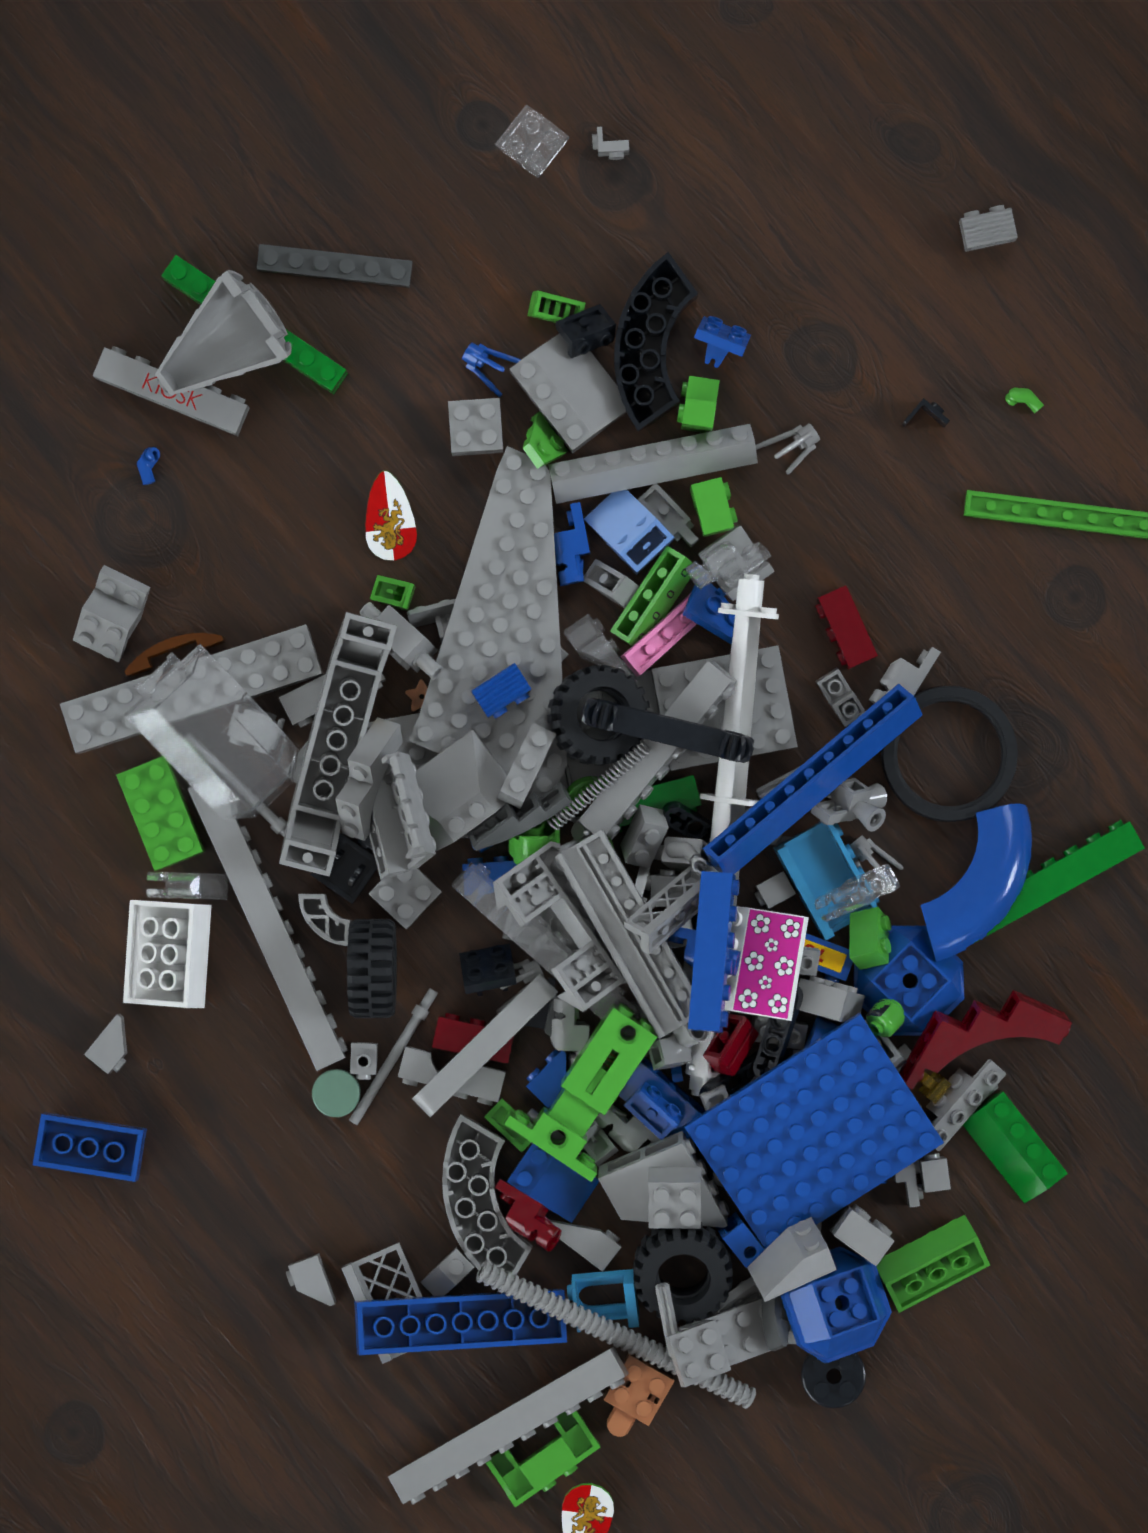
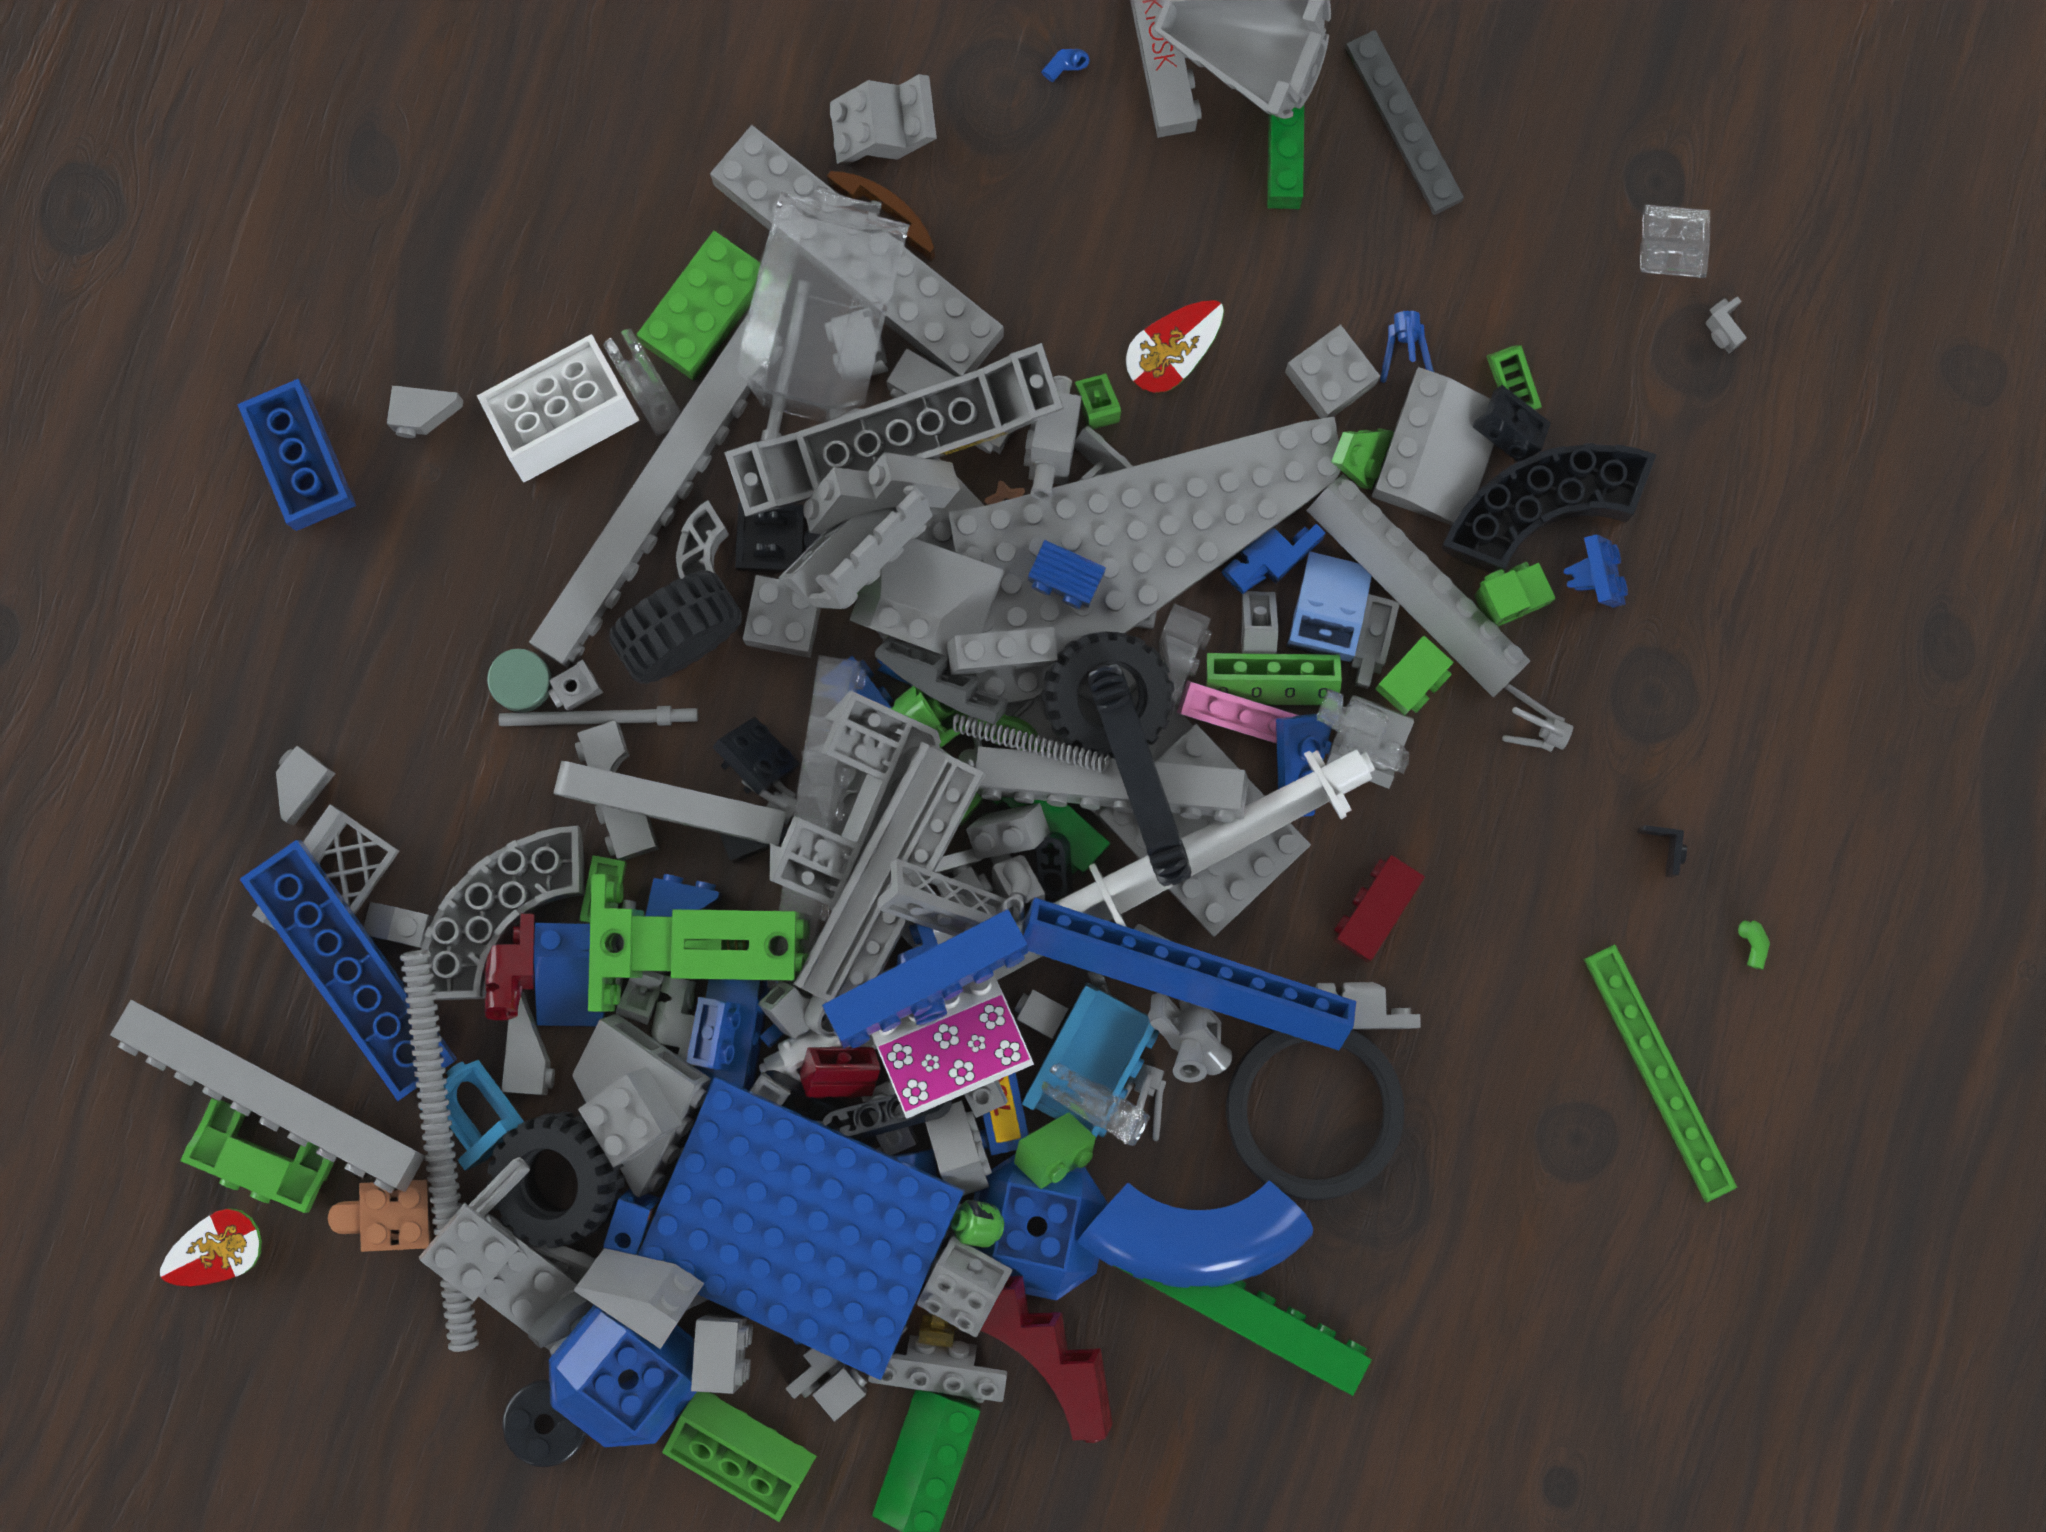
camera: 55 degrees right, 5 degrees down
(455, 1034) = (663, 763): dark red brick -> none
(564, 1029) = (743, 878): light grey plate -> none
(840, 696) = (1300, 949): light grey slope -> none
(920, 1051) = (964, 1287): none -> light grey bracket
(987, 228) = (1913, 784): light grey brick -> none

